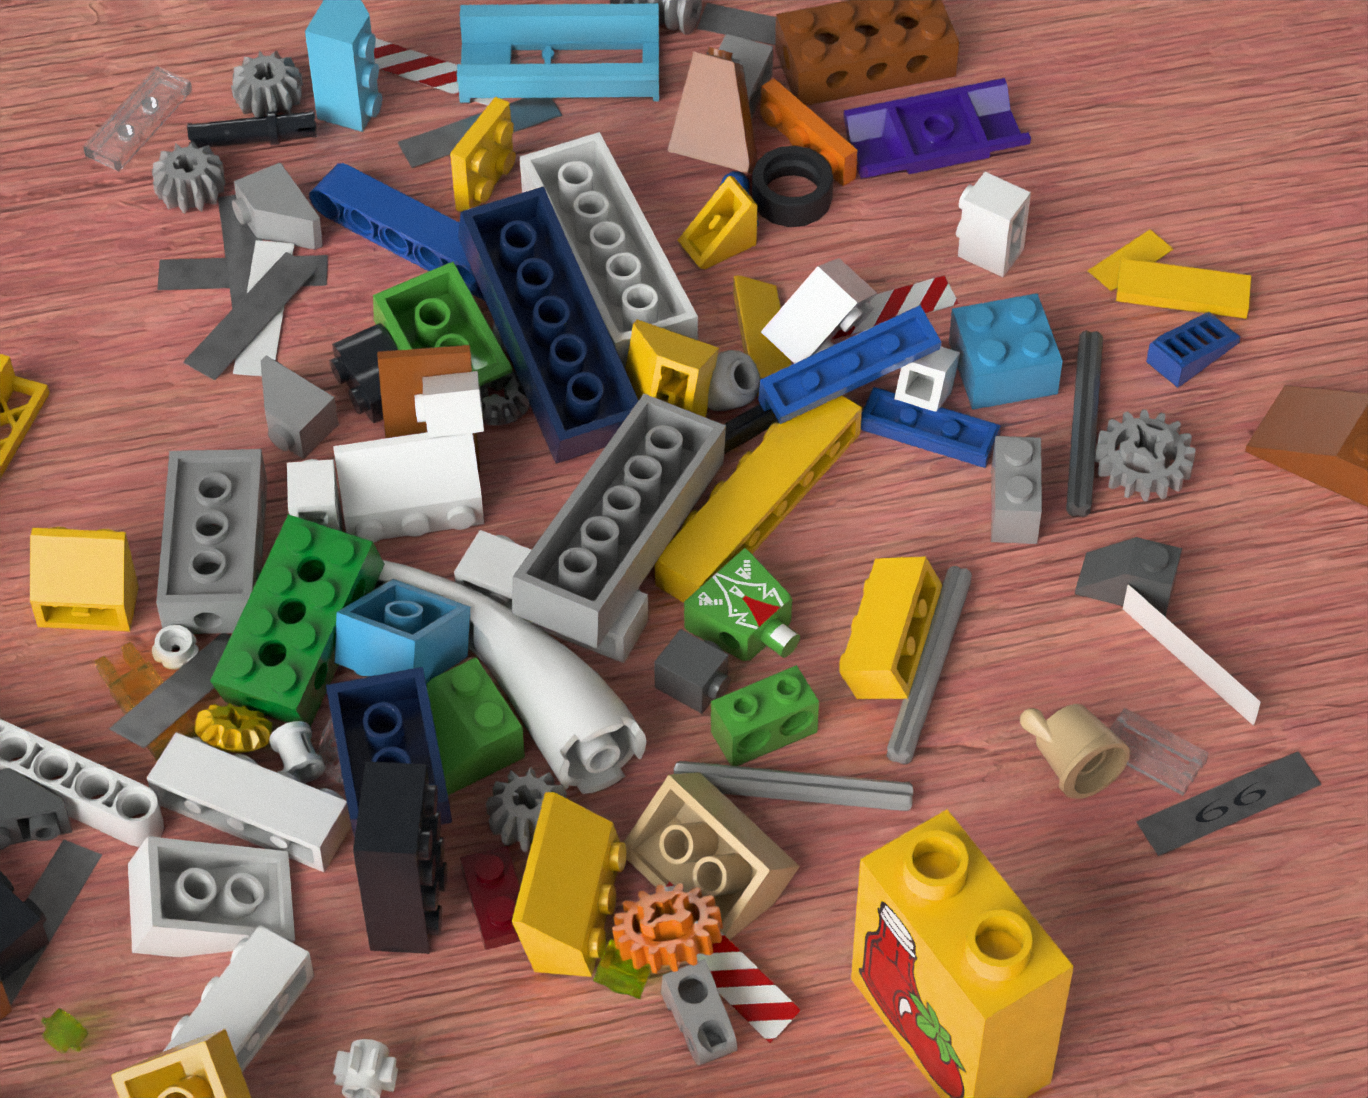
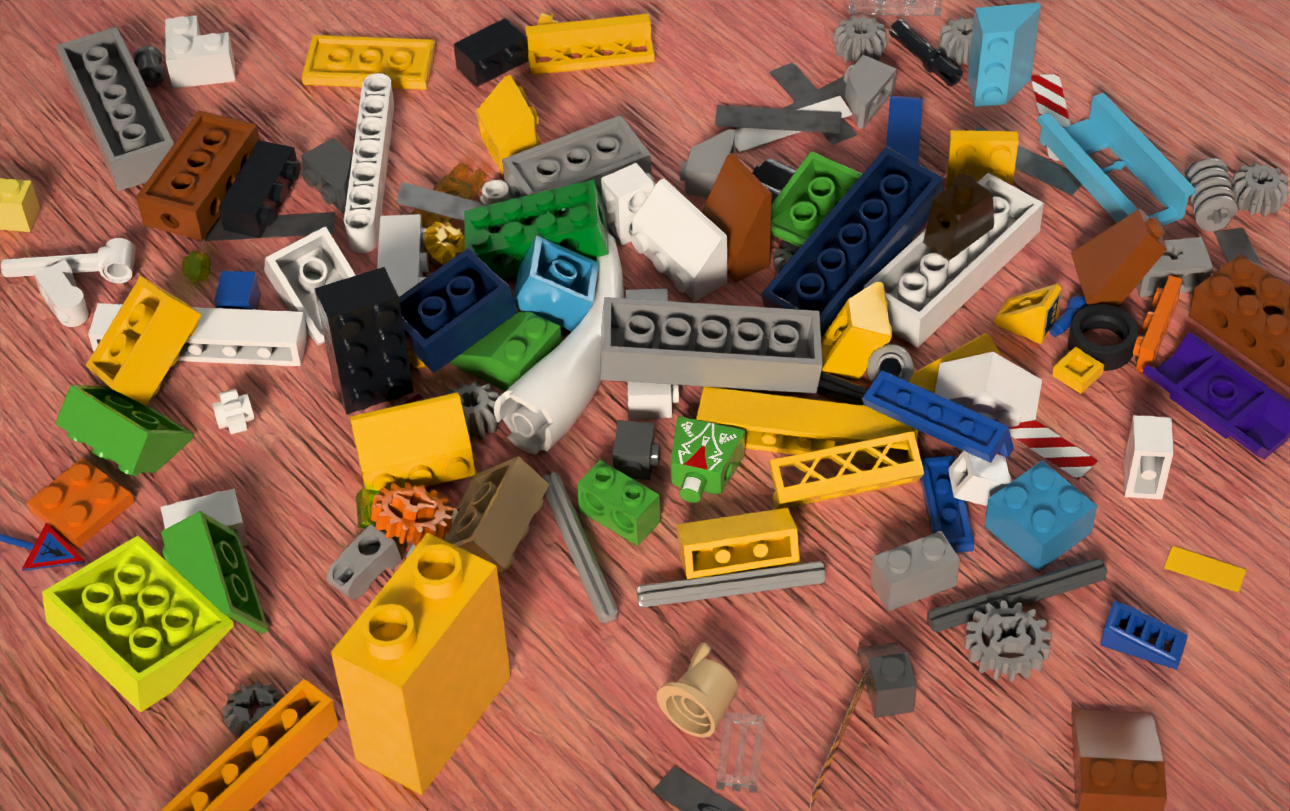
camera: 65 degrees right, 5 degrees down
(159, 996) = (237, 290): none -> blue brick
(450, 404) = (729, 214): white brick -> none
(593, 187) = (959, 217): none -> dark brown torso
(824, 228) = (1078, 370): none -> yellow plate
(864, 490) = (850, 484): none -> yellow fence
(1183, 288) = (1198, 610): yellow tile -> none

